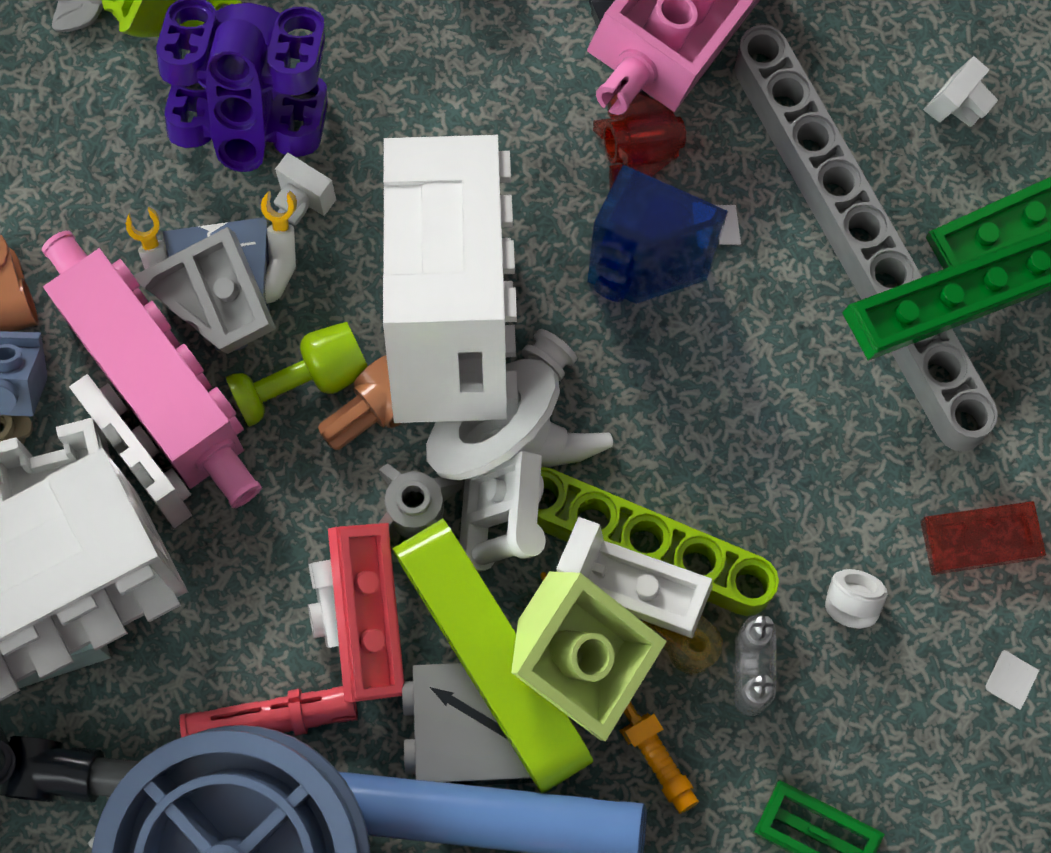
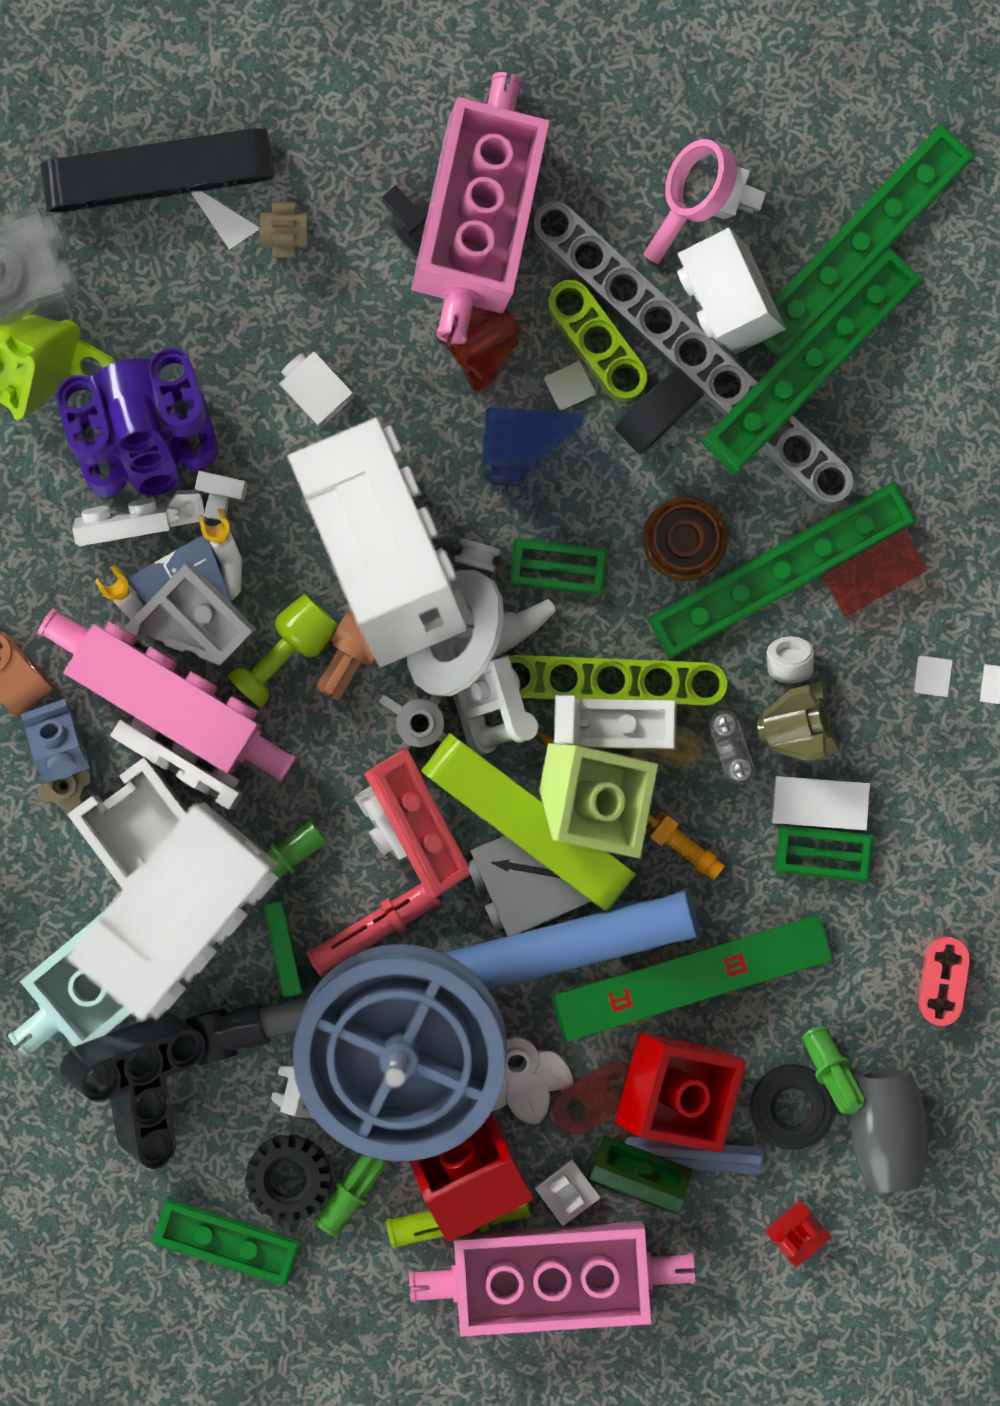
camera: 20 degrees left, 15 degrees up
(157, 696) = (283, 948): none -> green tile
(208, 183) = (140, 519): none -> white hinge
(211, 597) = (296, 848): none -> bright green axle
(444, 111) = (315, 388): none -> white brick
(623, 421) = (597, 571): none -> green tile
(767, 163) = (594, 318): none -> lime beam
(784, 421) = (685, 538): none -> reddish brown piece
(805, 271) = (659, 410): none -> black tyre
(835, 773) = (820, 803): none -> white tile
(842, 668) = (799, 724): none -> olive brick
(876, 497) = (781, 570): none -> green tile
(923, 90) = (674, 194): none -> bright pink piece
(928, 175) = (731, 292): none -> white brick

